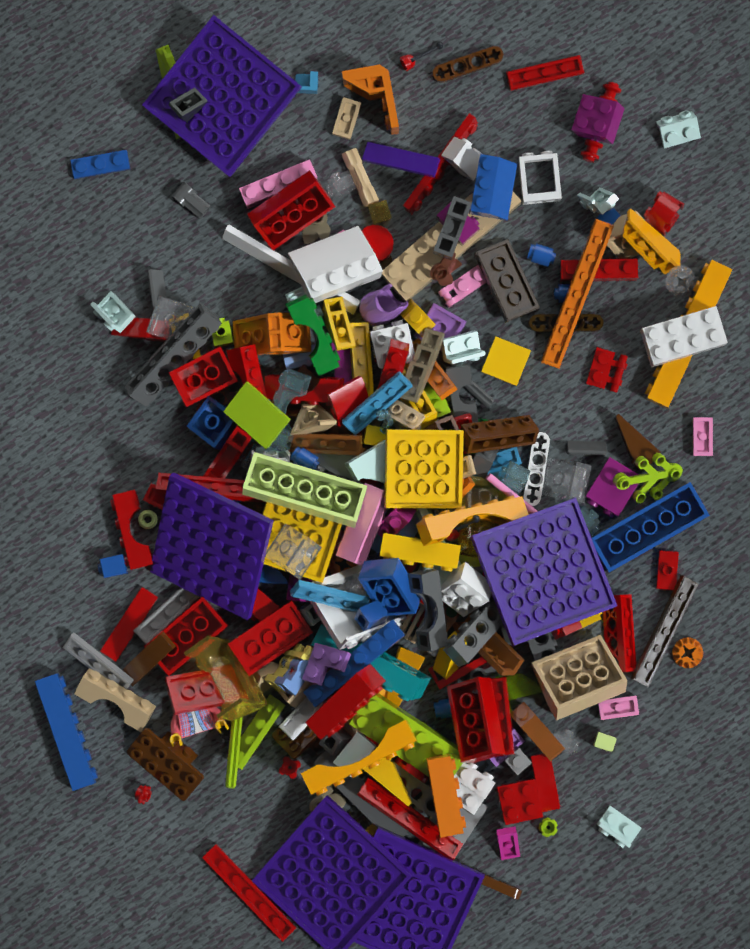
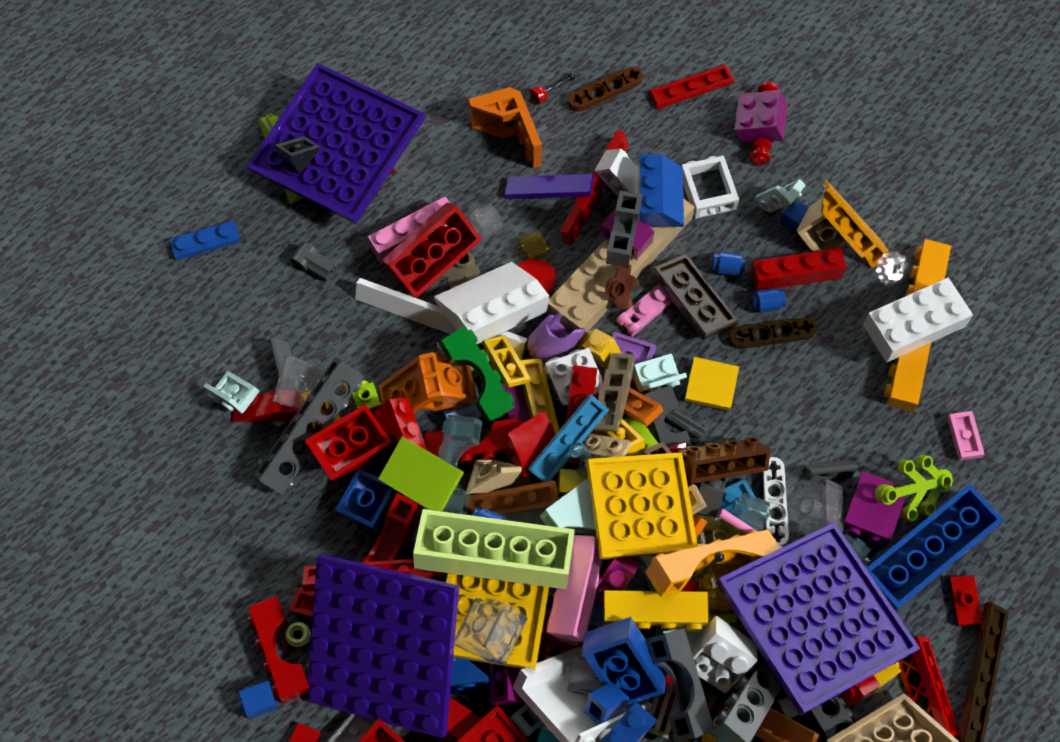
camera: 10 degrees left, 20 degrees down
(308, 82) = (432, 130): dark azure panel -> none
(328, 596) = (544, 685): dark azure tile -> none
(346, 118) = (480, 157): tan plate -> none
(365, 189) = (514, 225): tan axle -> none
(577, 293) = (780, 294): orange tile -> none
(601, 367) = (825, 378): red plate -> none
(635, 442) = (886, 451): reddish brown slope -> none
(663, 213) = (860, 195): red brick -> none
(678, 128) = (851, 120): light aqua bracket -> none
(678, 651) = (1007, 701): orange gear -> none

